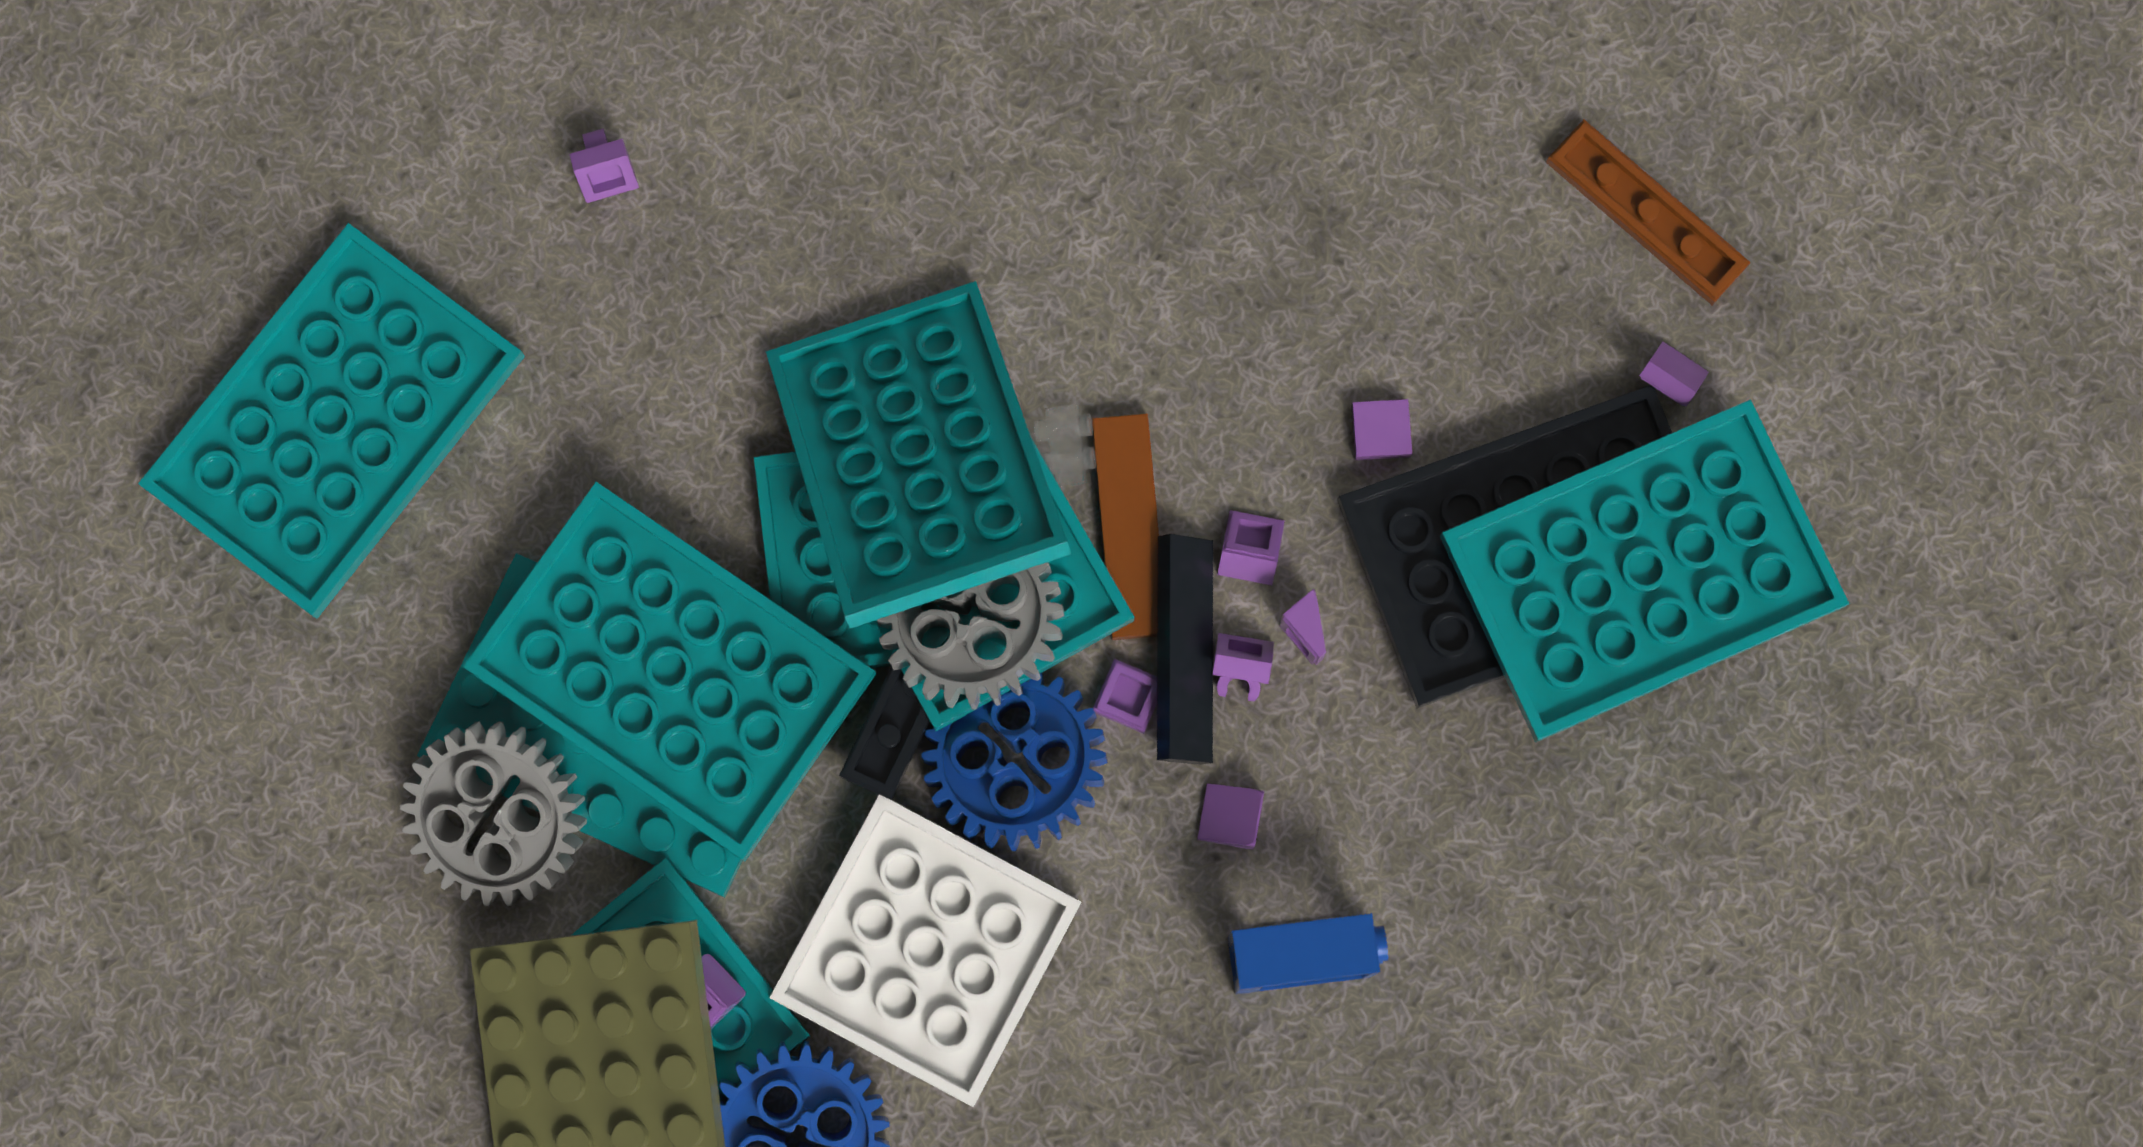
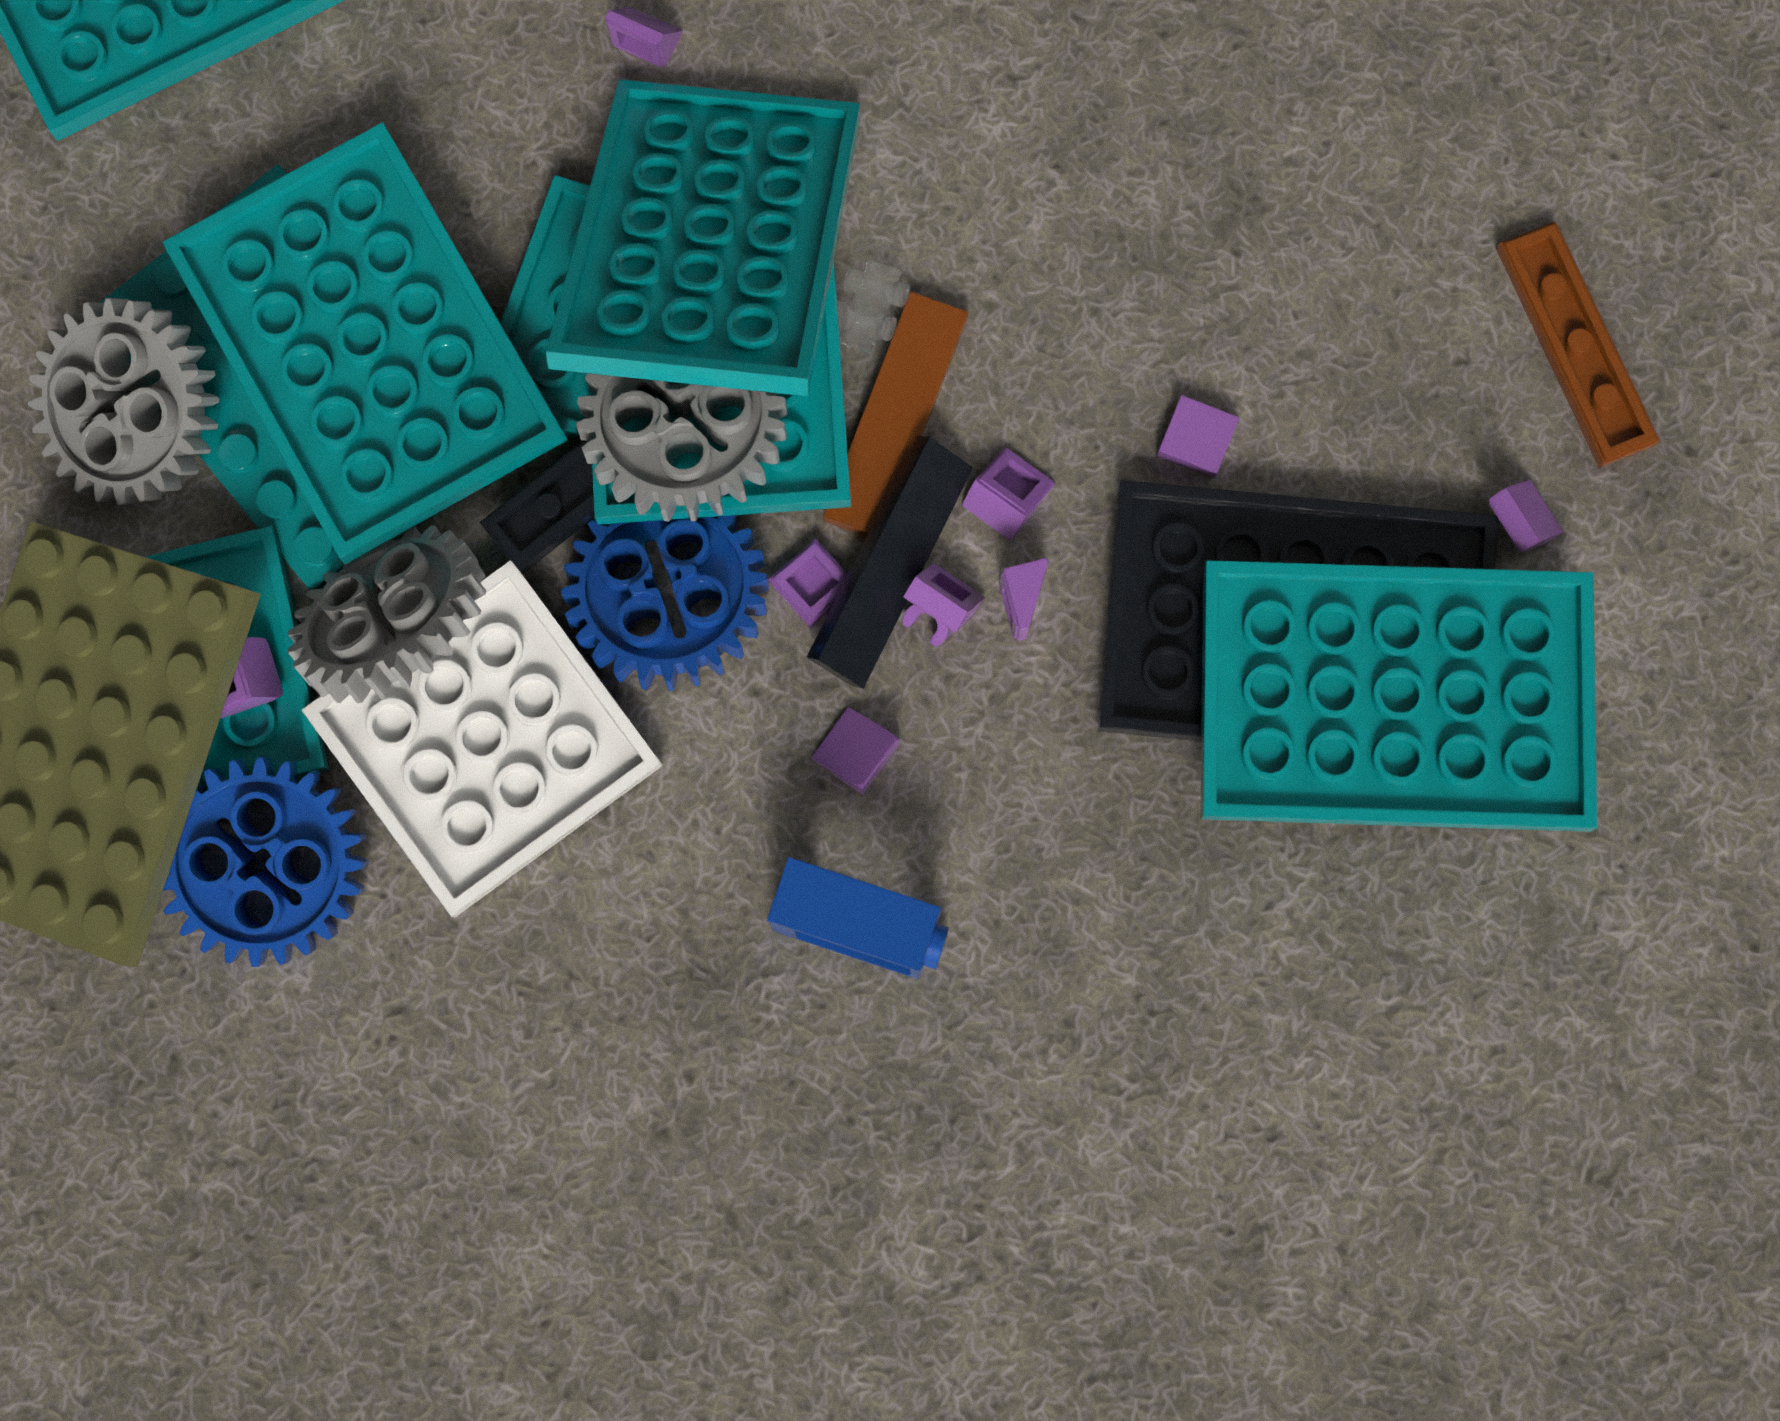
camera: 25 degrees right, 0 degrees up
(766, 302) = (642, 35): none -> medium lavender slope
(774, 916) = (424, 597): none -> light grey gear

